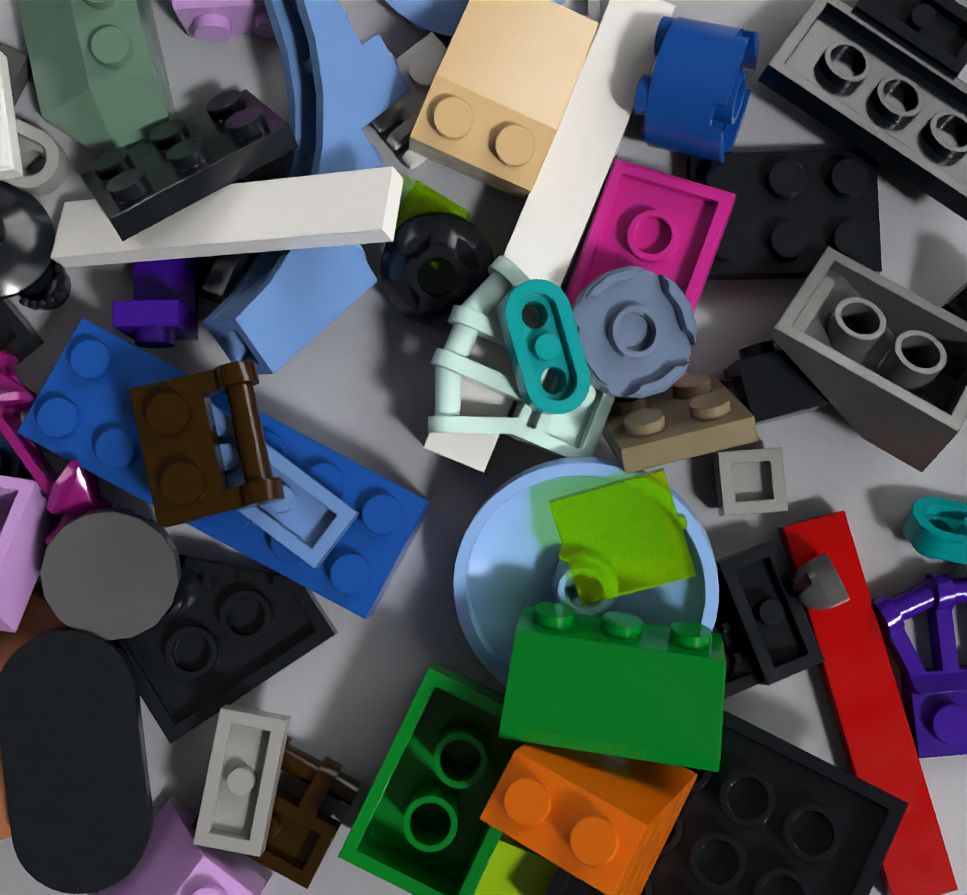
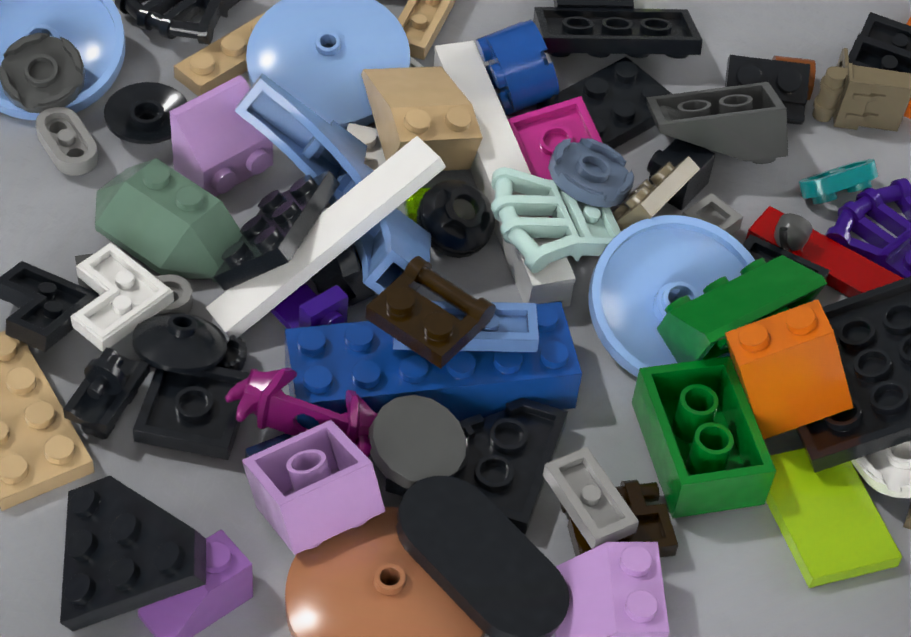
camera: 45 degrees left, 35 degrees down
(548, 346) = (558, 188): teal plate -> none
(622, 537) = (677, 251): clear neon green piece -> none

